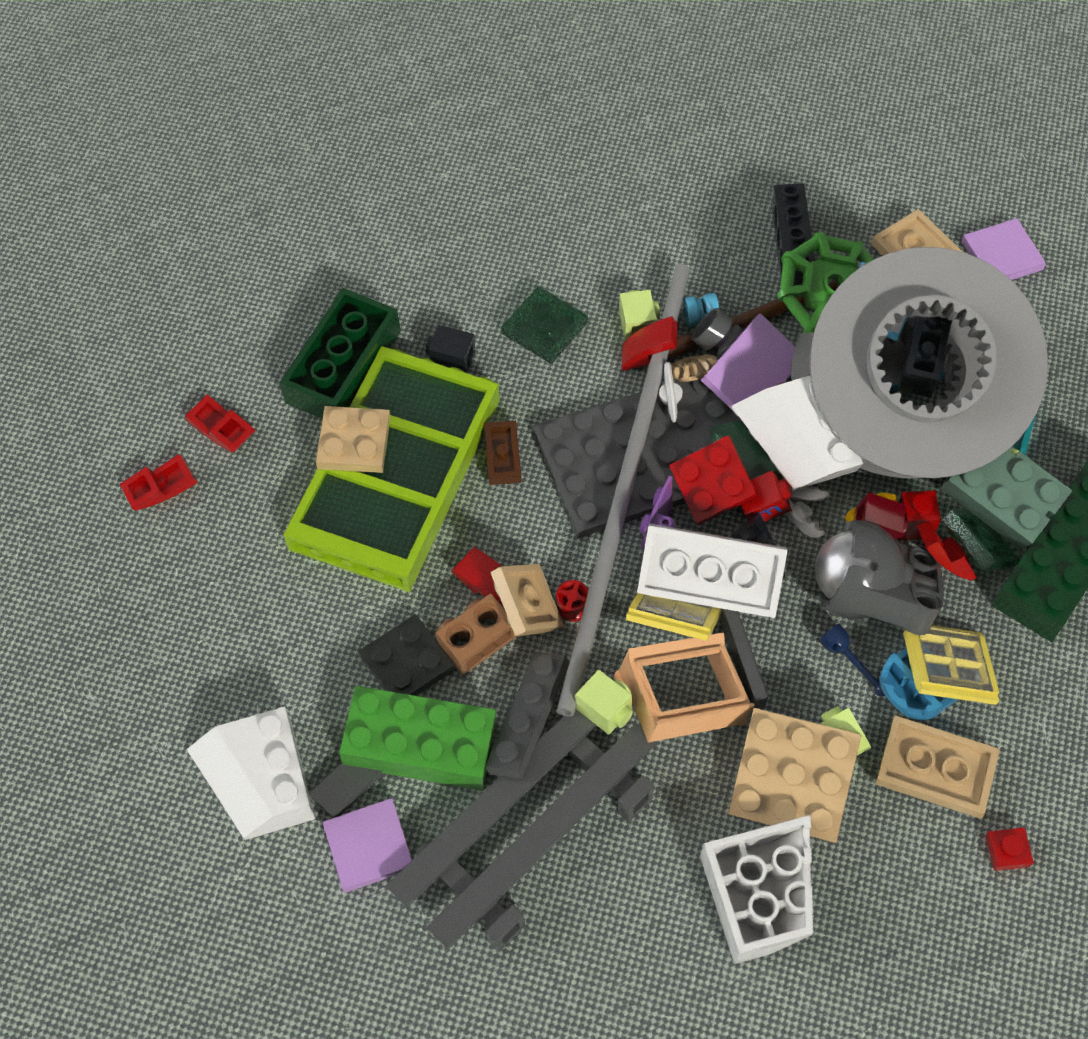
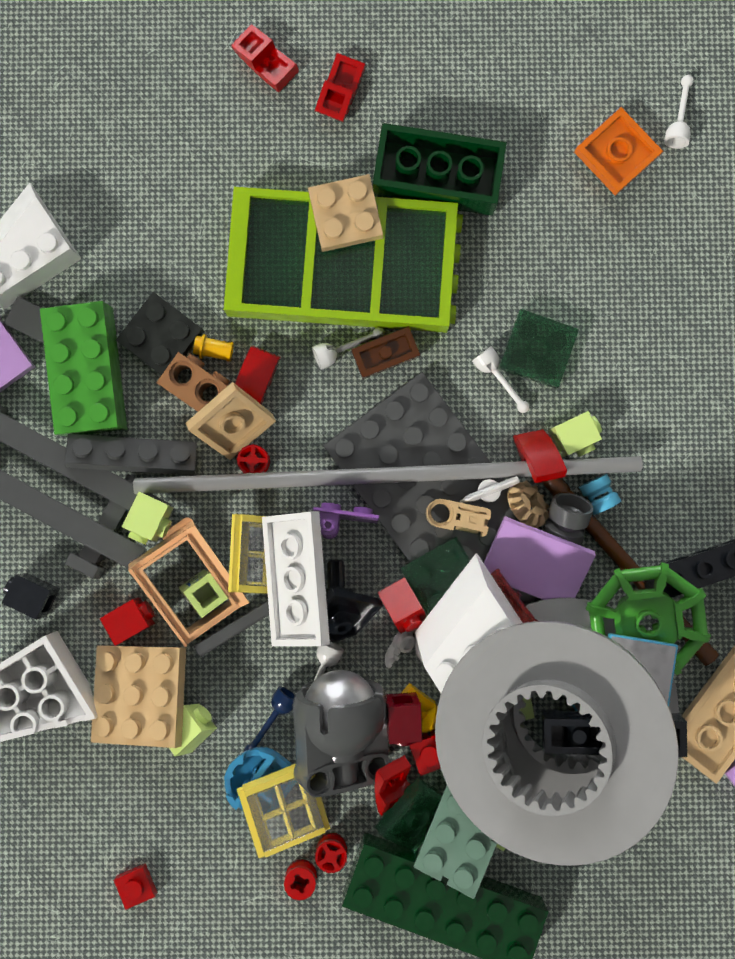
camera: 70 degrees right, 25 degrees up
(382, 216) = (618, 151): none -> orange plate
(384, 168) = (679, 133): none -> white hinge
(440, 608) = (213, 348): none -> yellow pin
(451, 348) = (480, 269): black brick -> none
(484, 506) = (326, 353): none -> hinge
(542, 369) = (487, 363): none -> white hinge
(651, 868) = (29, 595): none -> black brick
(690, 423) = (463, 516): none -> tan piece
(700, 678) = (203, 593): none -> yellowish green brick
(709, 769) = (128, 620): none -> red brick
(713, 480) = (401, 556): red plate -> none
(798, 585) = (328, 656): none -> white hinge
(937, 766) = (188, 813): tan plate -> none
(1010, 627) = (332, 860): none -> red wheel
(1024, 679) = (300, 871): none -> red wheel

